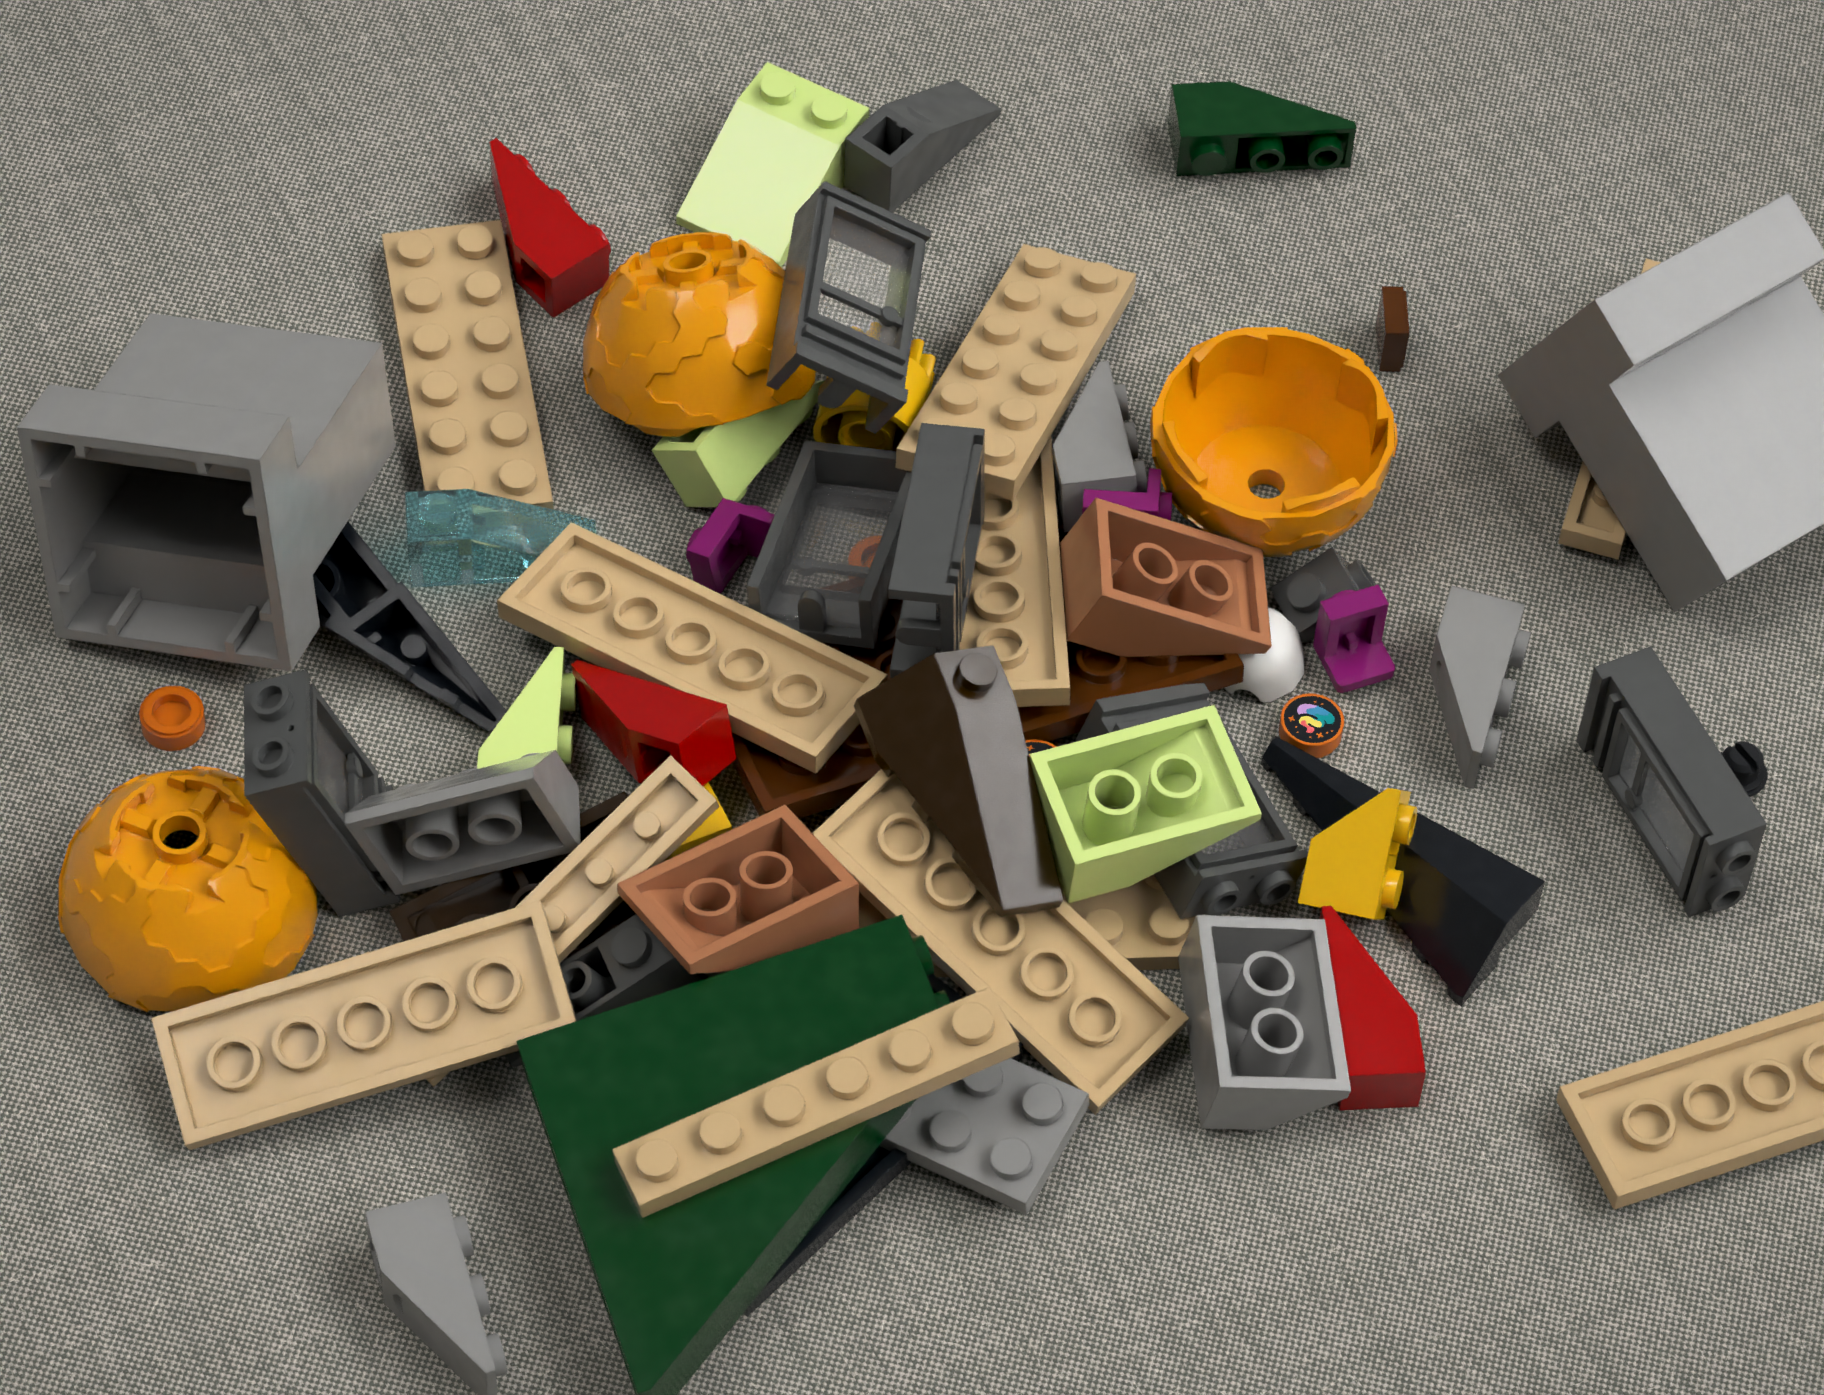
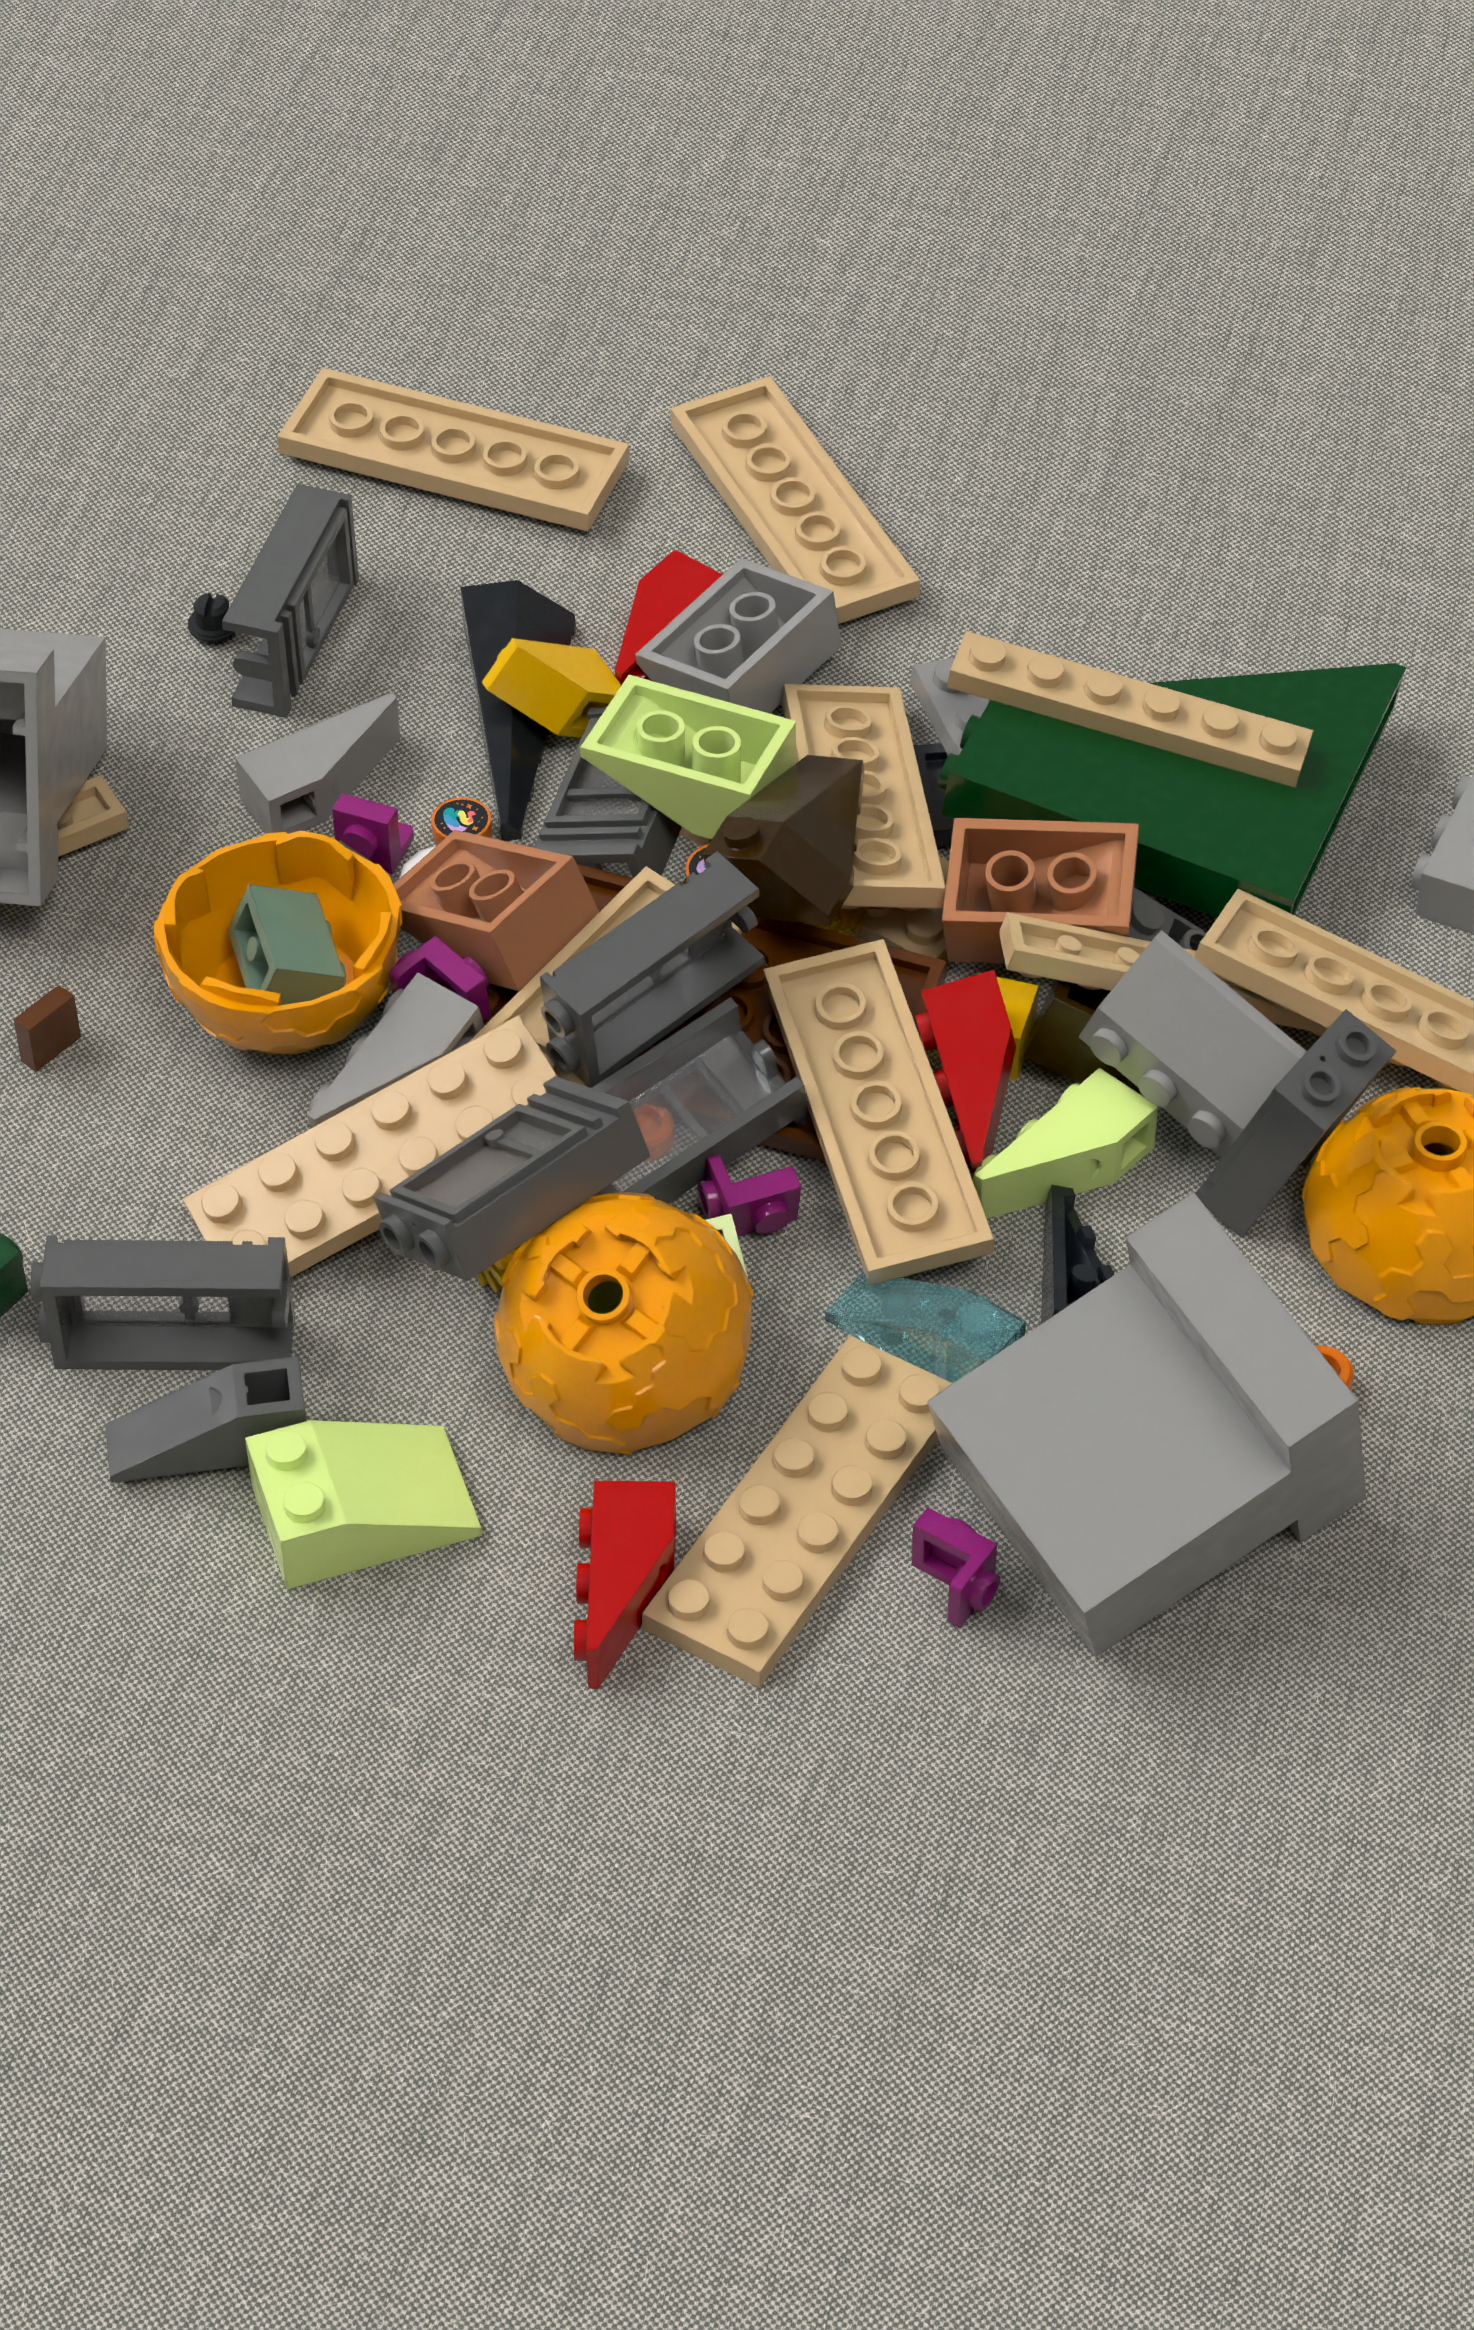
camera: 135 degrees left, 5 degrees down
(1038, 166) = (163, 1303): none -> dark grey door
(1265, 452) = (285, 944): none -> sand green brick
(1414, 1258) = (793, 497): none -> tan plate

